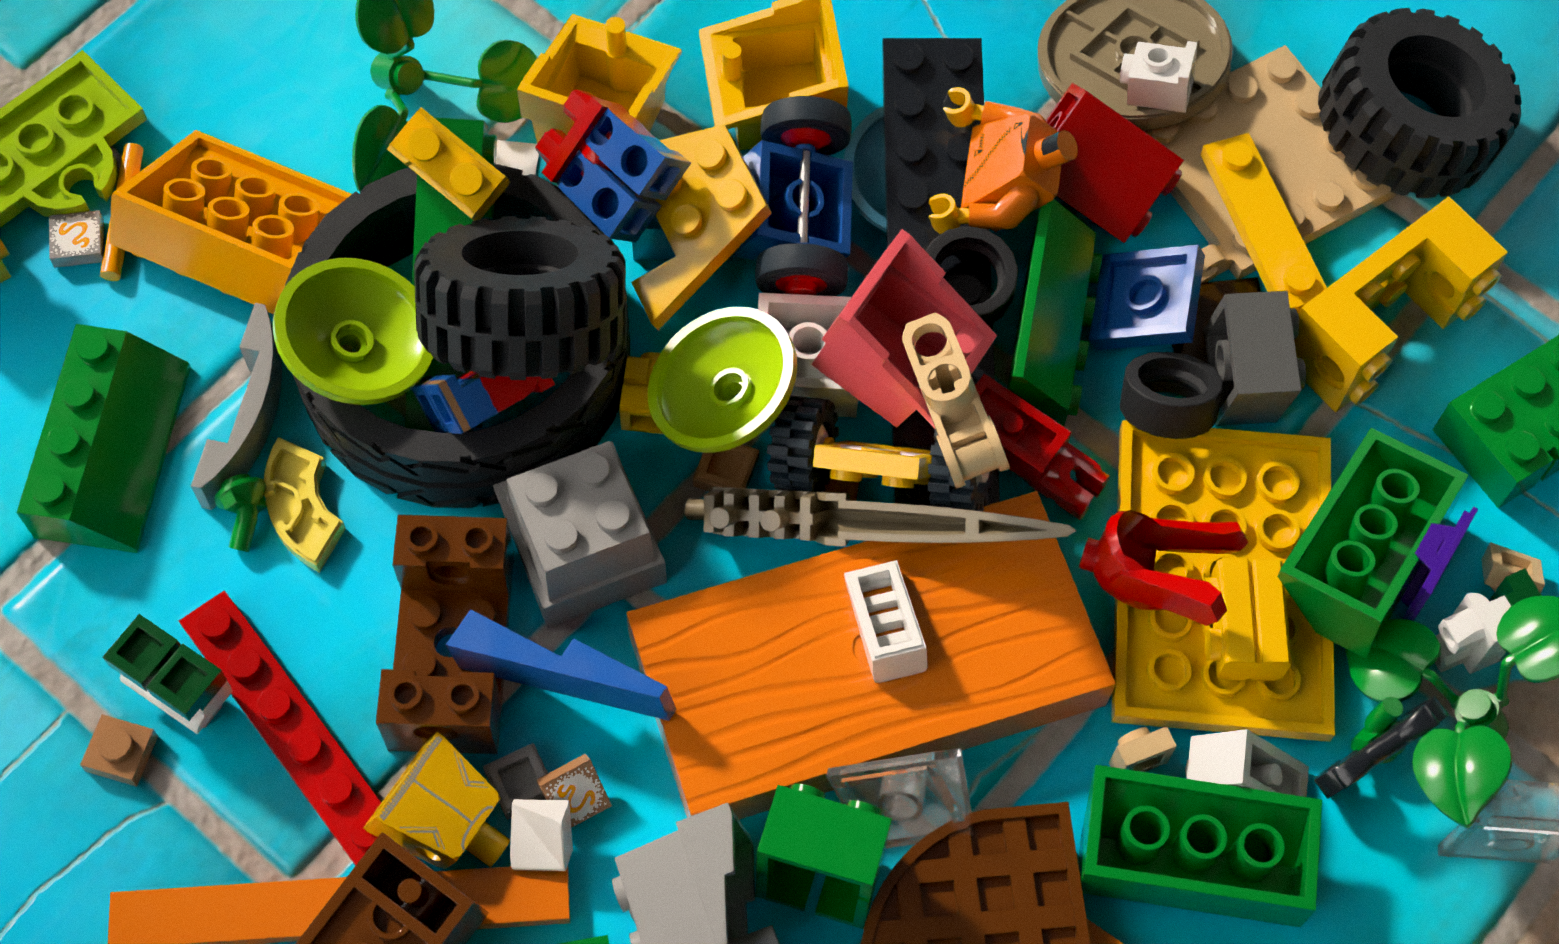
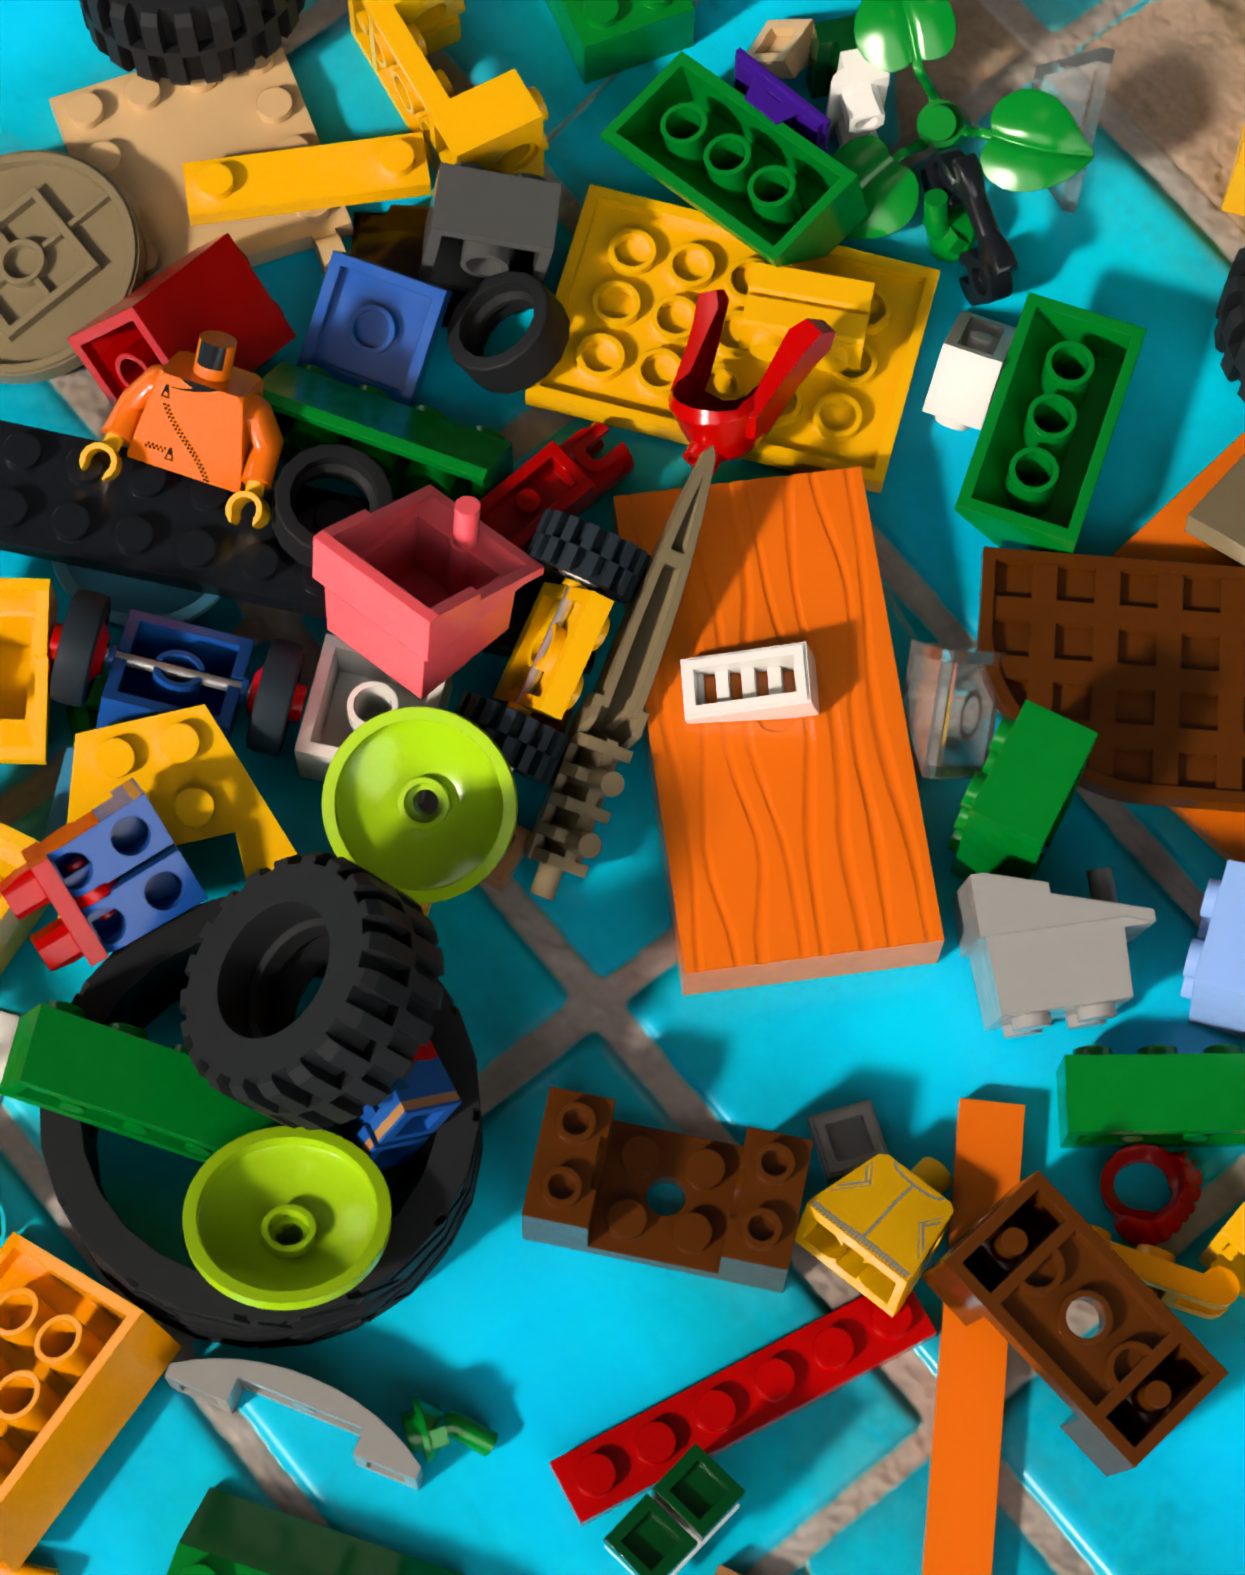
camera: 80 degrees left, 5 degrees up
(296, 504) = (441, 1366): light yellow tile -> none
(448, 164) = (106, 1051): yellow brick -> none
(540, 835) = (929, 1118): white slope -> none
(578, 673) = (761, 1025): blue slope -> none
(578, 784) = (879, 1077): tile -> none
(580, 533) = (556, 1015): light grey piece -> none
(962, 425) = (542, 510): tan piece -> none
(1143, 750) = (927, 467): tan plate -> none
(1160, 75) = (92, 233): white brick -> none

